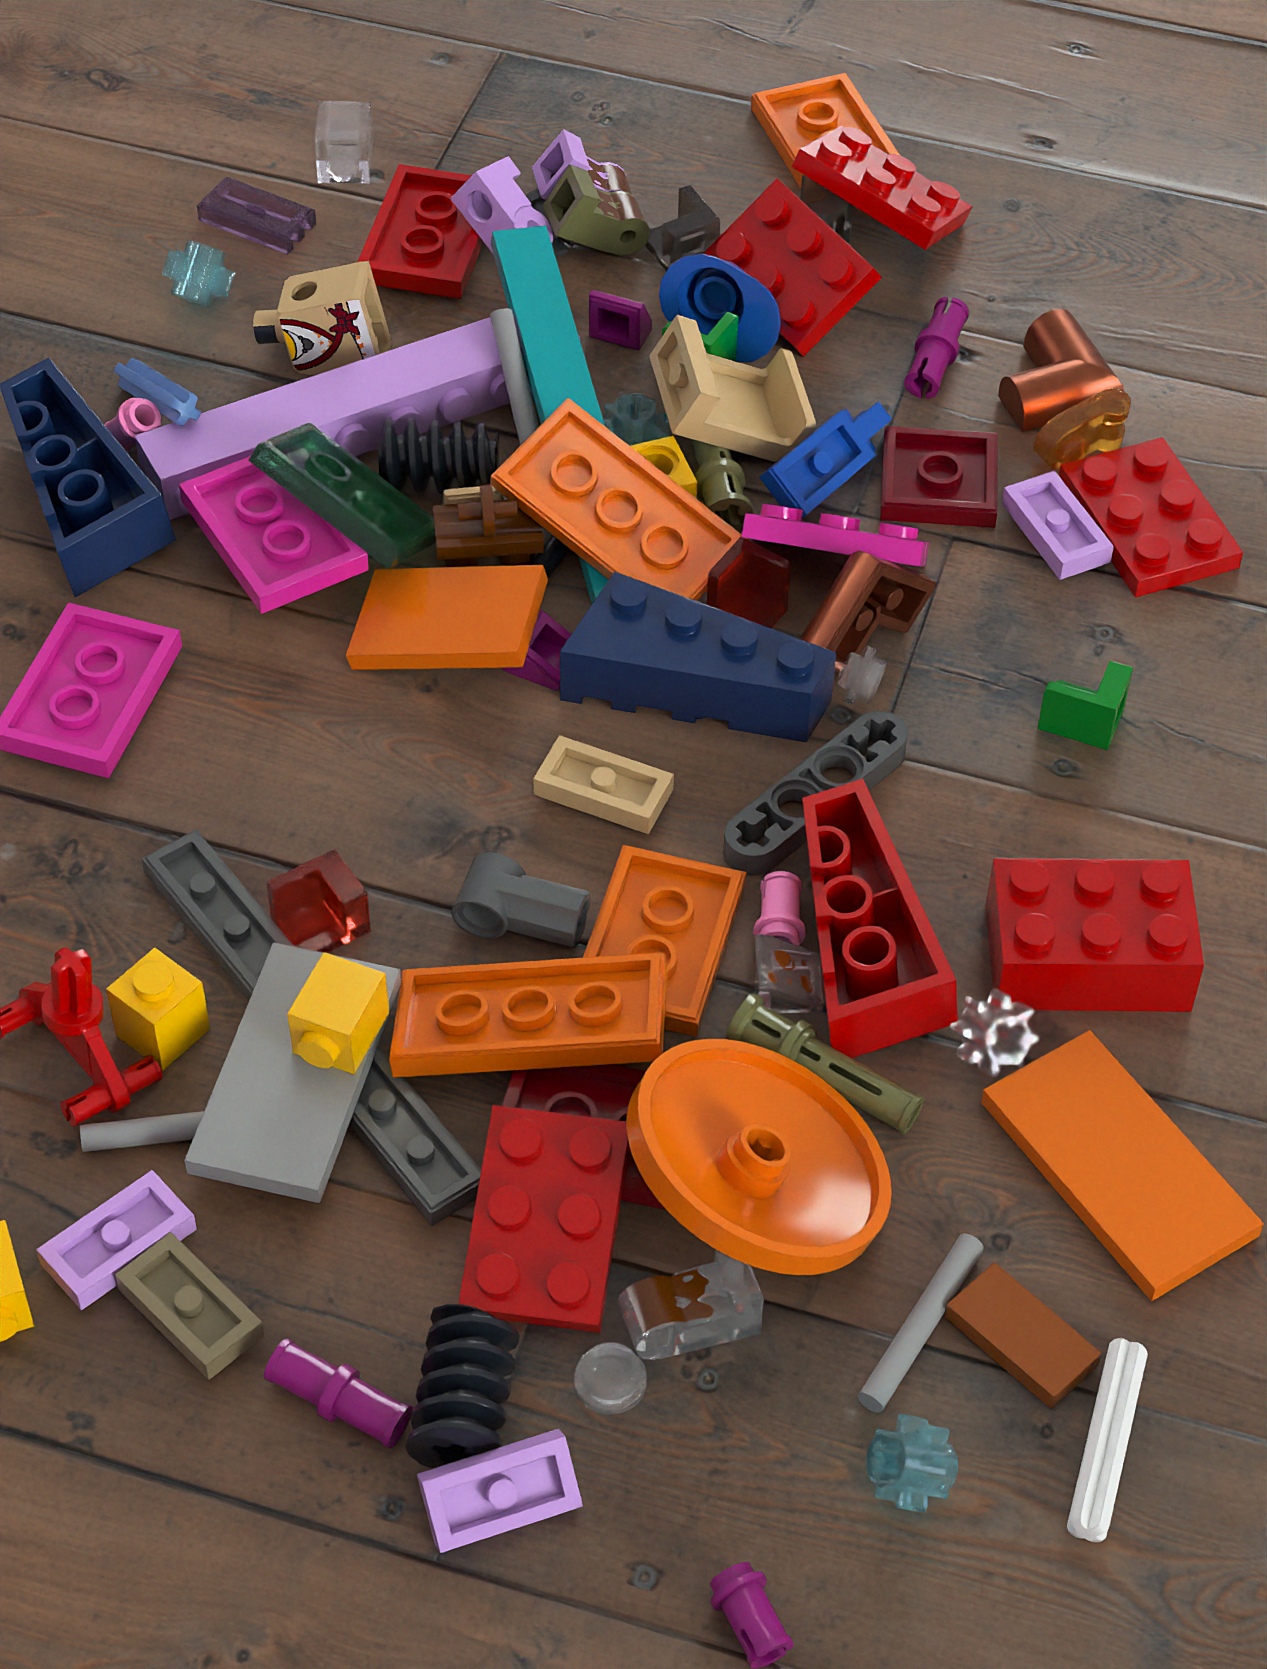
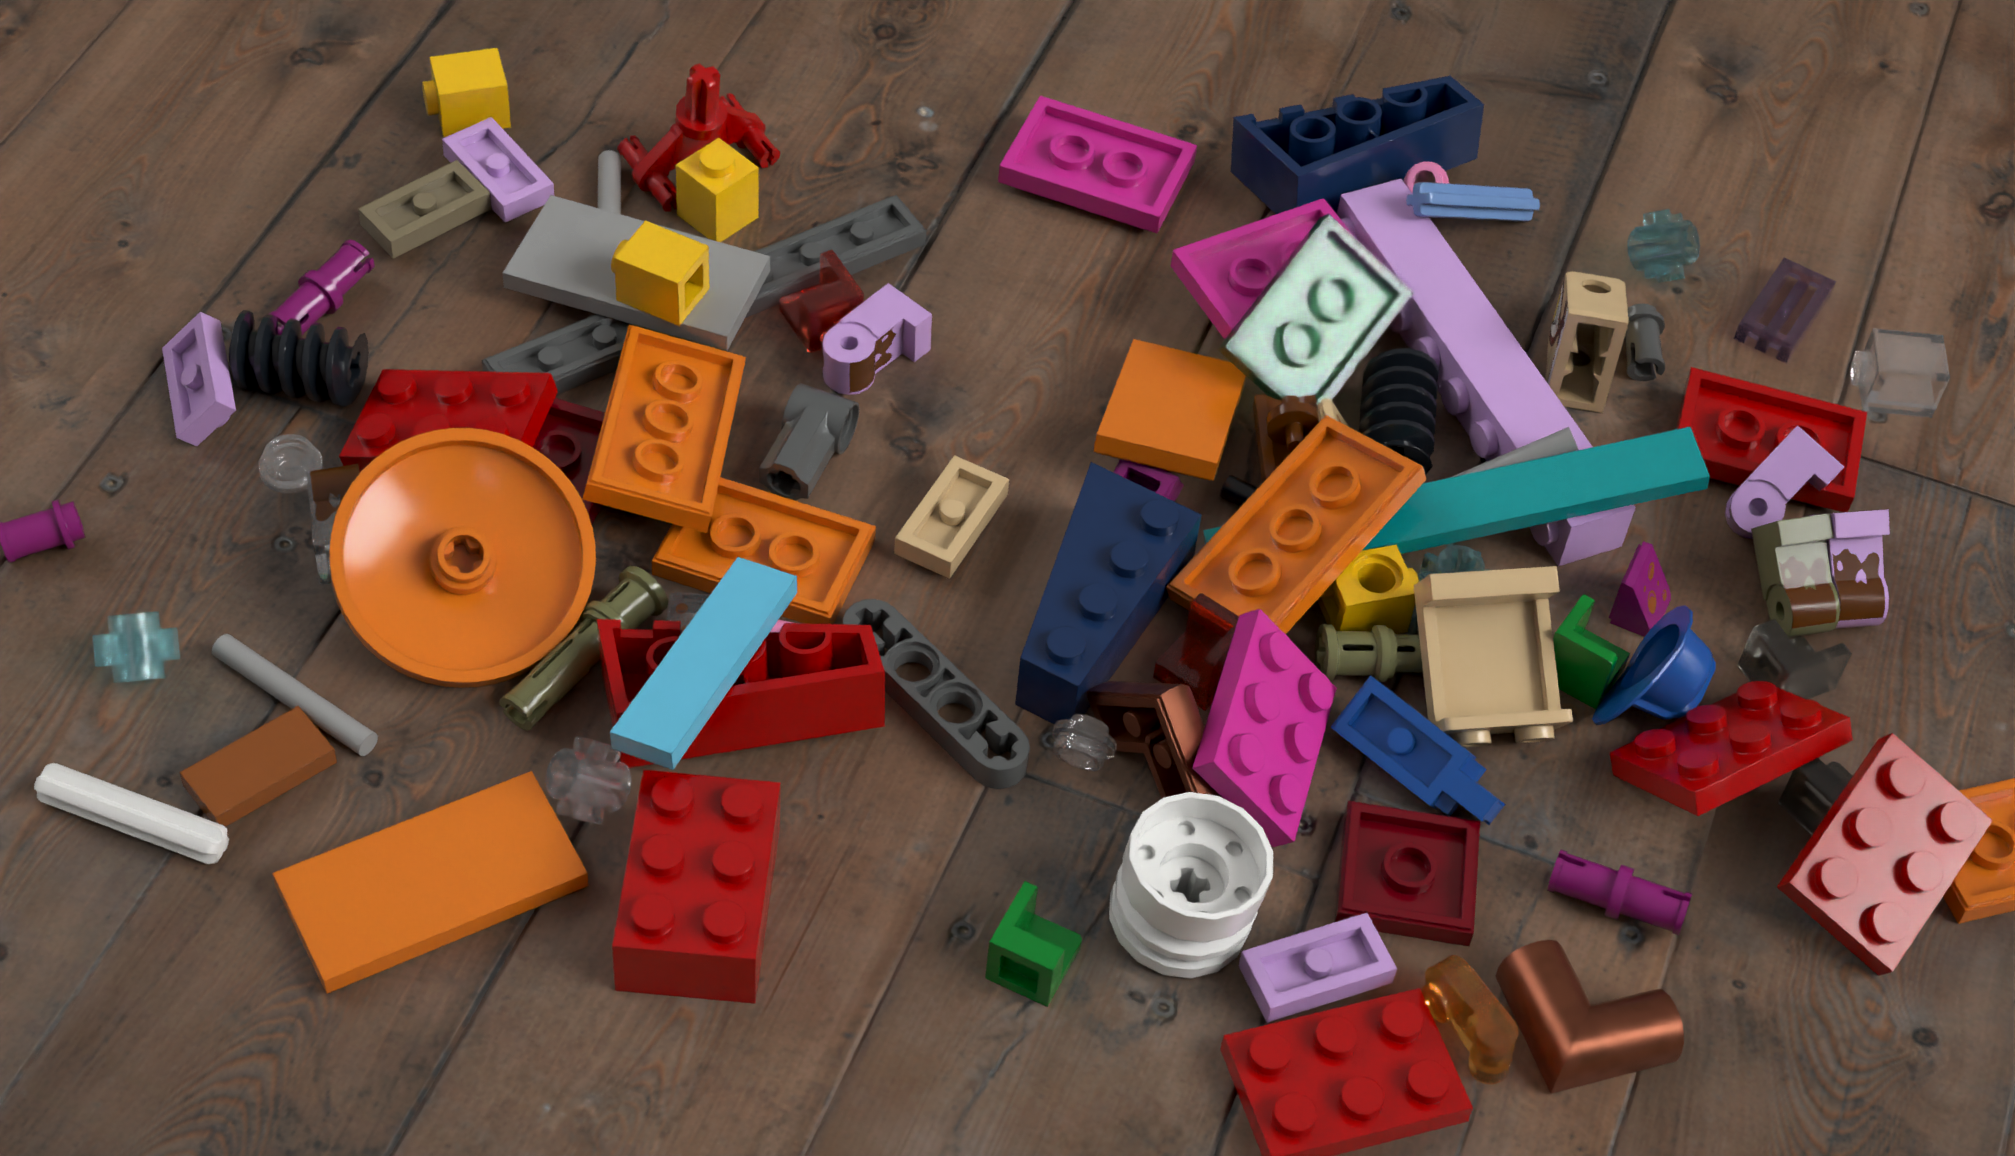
camera: 90 degrees right, 0 degrees up
(387, 869) = (873, 338): none -> lavender leg
(887, 908) = (703, 663): none -> medium azure tile
(1022, 582) = (1190, 884): none -> white wheel

